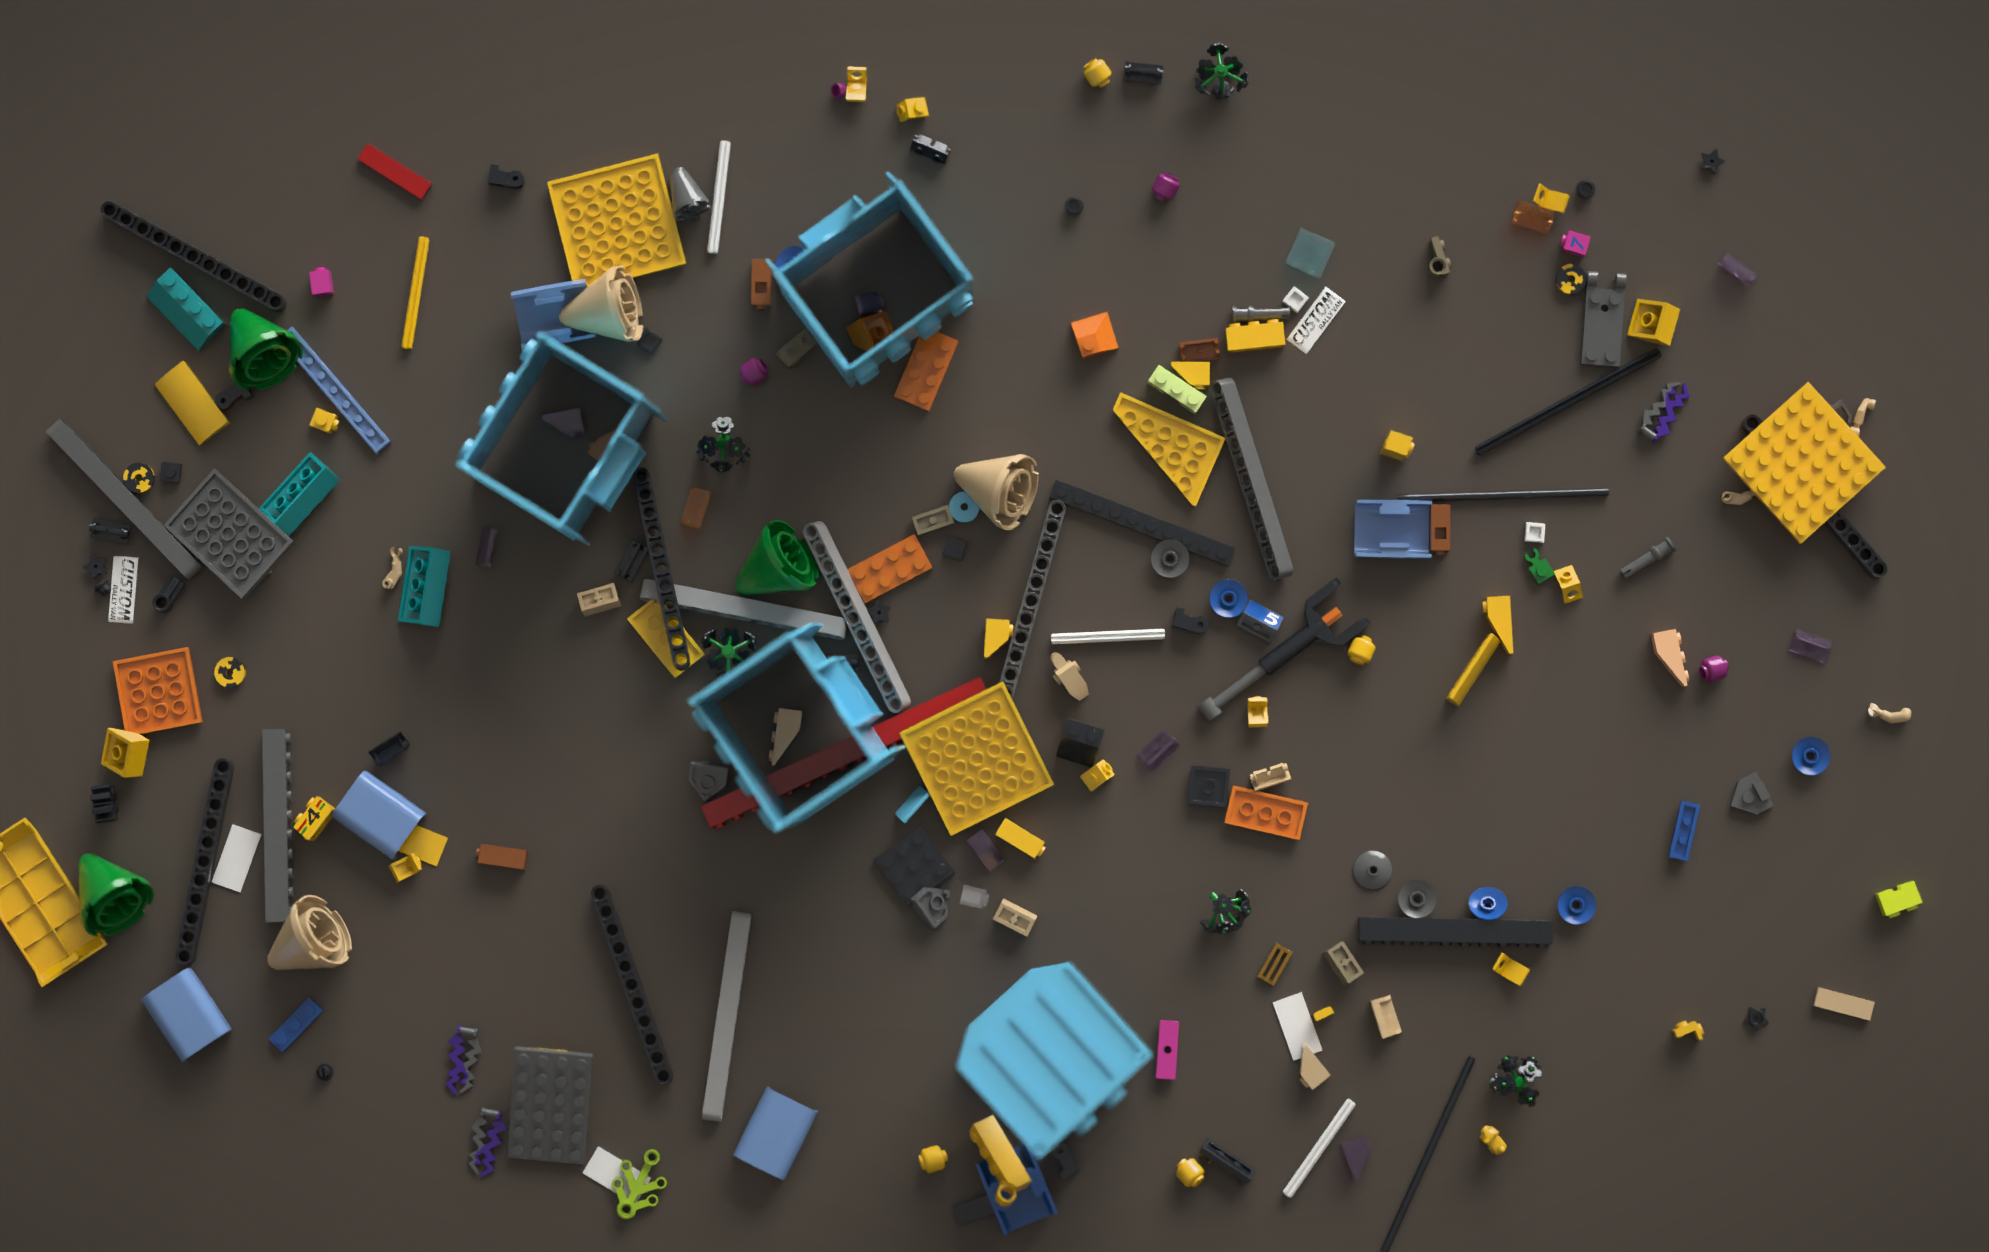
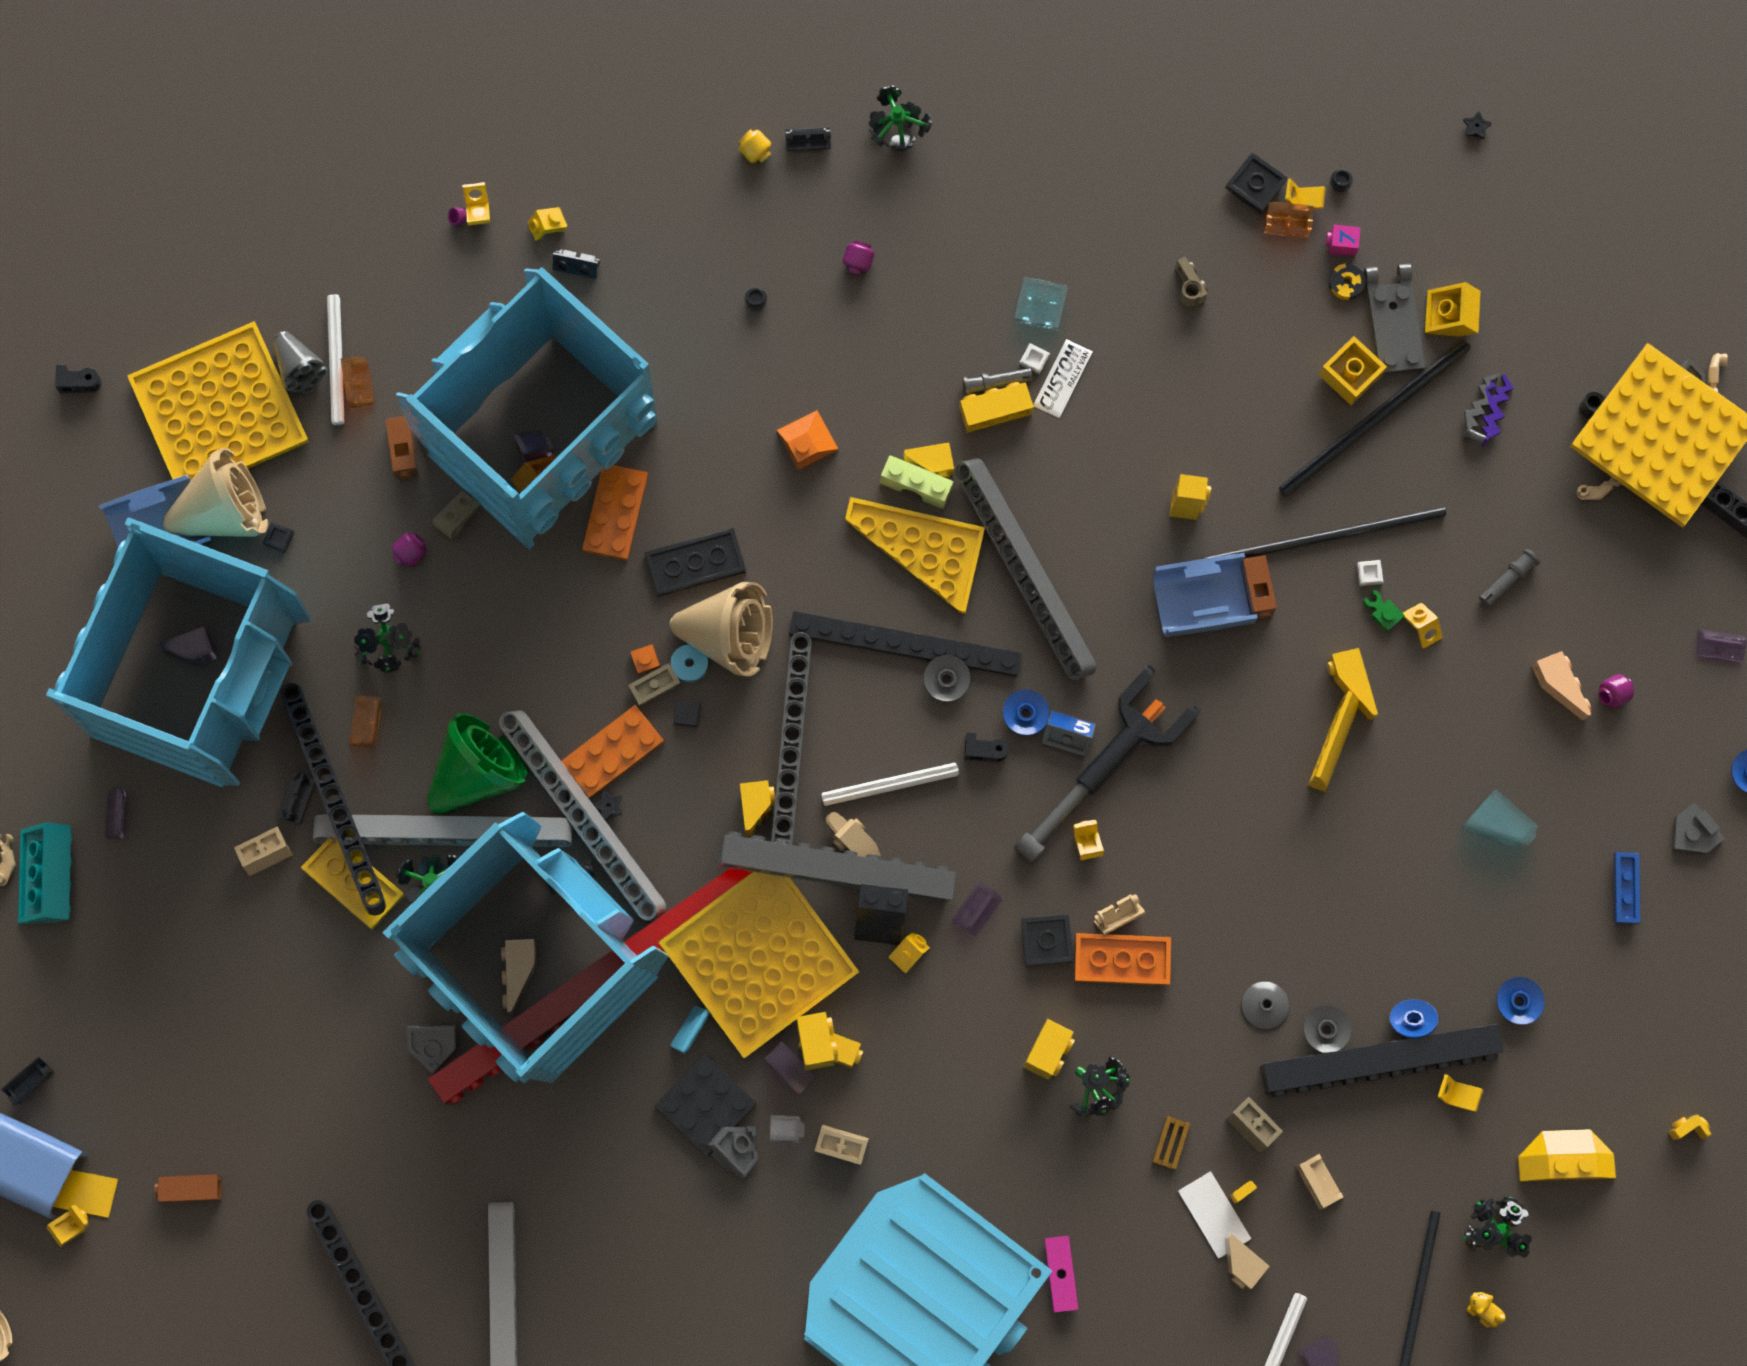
camera: 20 degrees left, 10 degrees down
(733, 220) = (357, 381): none -> clear orange hinge
(929, 497) = (645, 659): none -> orange plate
(984, 423) = (695, 562): none -> black tile
(1009, 835) = (816, 1042): none -> yellow brick
(1050, 700) = (833, 868): none -> dark grey brick
(1192, 874) = (1048, 1049): none -> yellow brick
(1199, 350) = (934, 432): dark orange hinge -> none
(1361, 650) = (1196, 744): yellow head -> none
(1513, 179) = (1256, 182): none -> black plate
(1557, 359) = (1352, 370): none -> yellow brick
(1585, 1034) = (1566, 1157): none -> yellow wedge
(1594, 758) = (1501, 821): none -> clear light blue slope
(1738, 269) = (1534, 238): clear purple slope -> none

